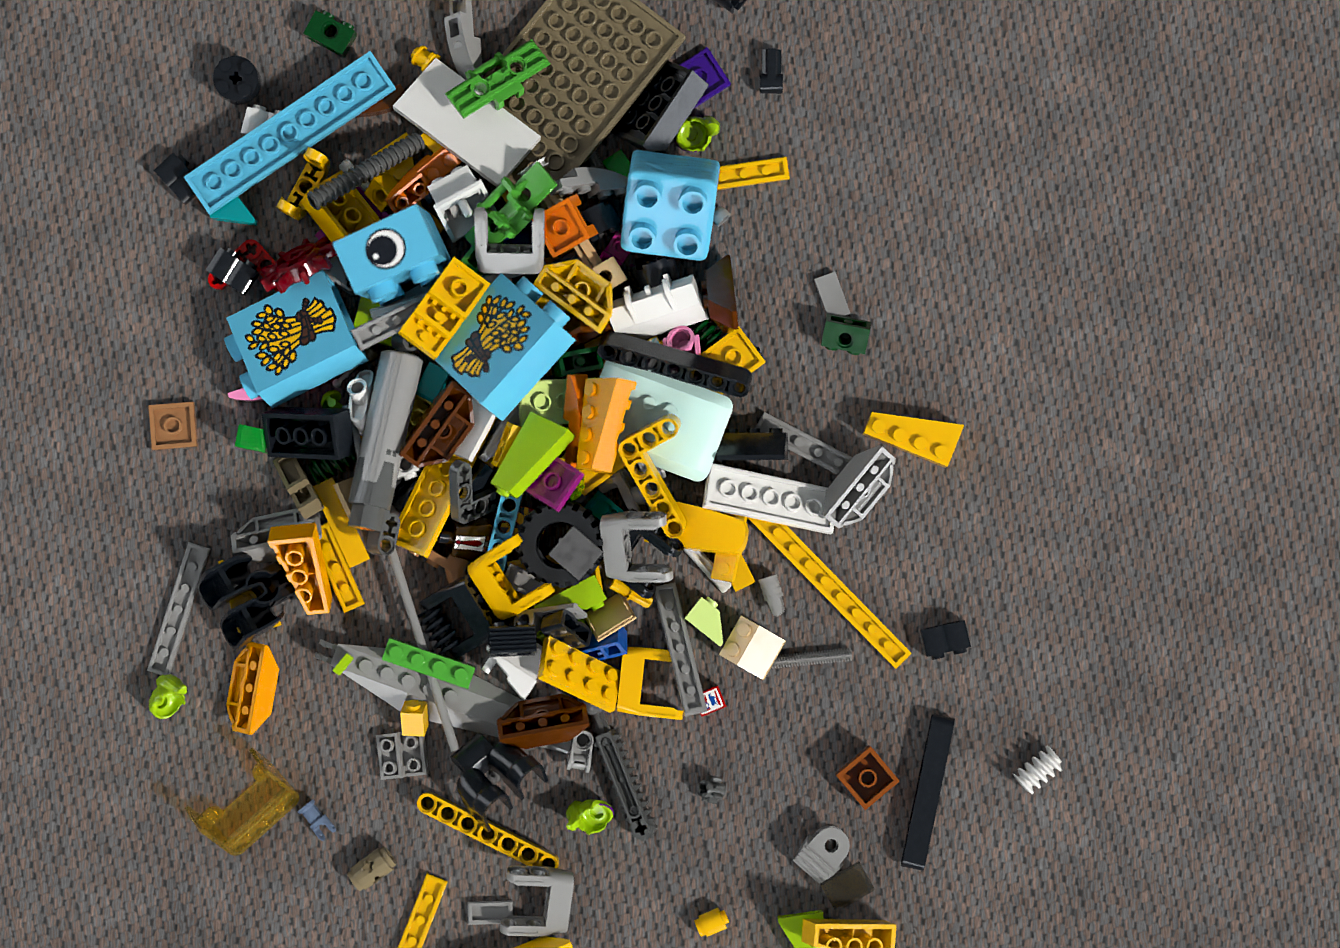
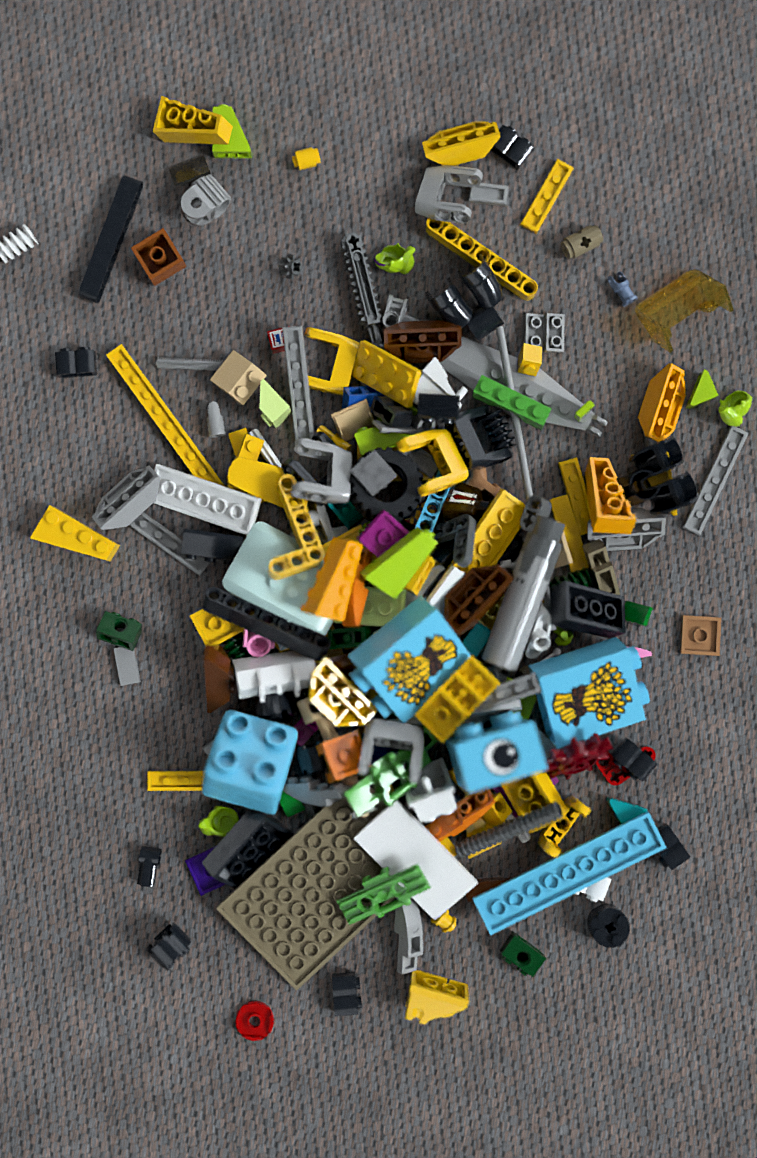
camera: 170 degrees left, 0 degrees up
(207, 710) = (703, 390): none -> lime slope

